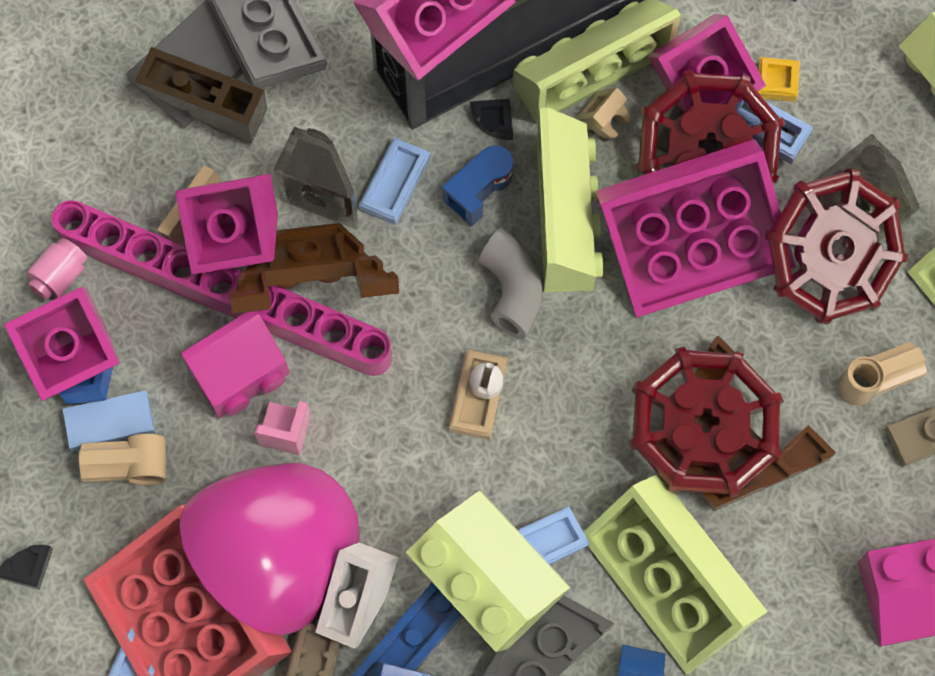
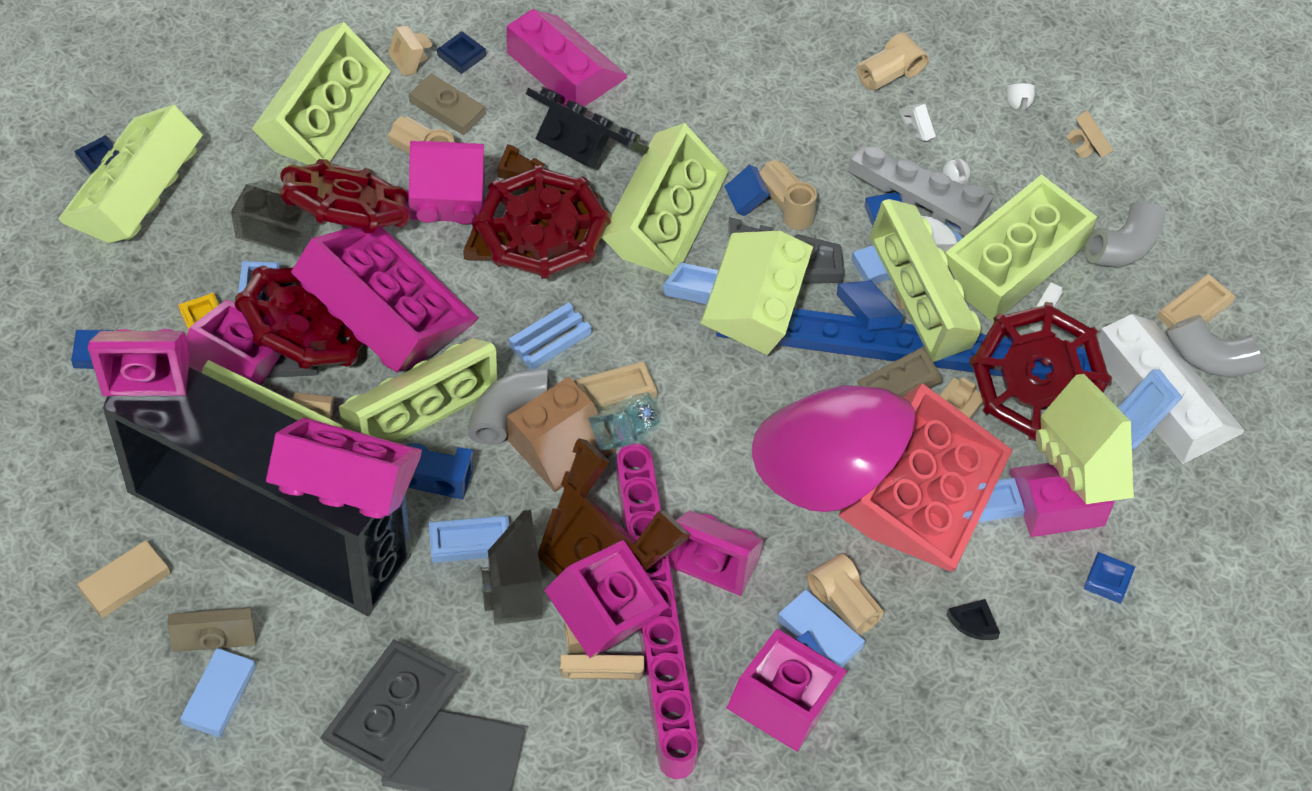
camera: 125 degrees left, 15 degrees down
(56, 269) = (726, 743): bright pink brick -> none
(204, 94) = (493, 703): dark brown slope -> none
(284, 427) = (737, 494): bright pink panel -> none
(355, 593) = (823, 369): white slope -> none
(422, 368) = (629, 421): none -> clear light blue leg
(448, 308) = (549, 428): none -> medium nougat slope
(495, 381) = (604, 378): white hinge -> none
(569, 336) = (547, 330): none -> light blue tile
(805, 354) = (446, 181): none -> dark pink slope
(815, 536) = (575, 133): none -> black bracket

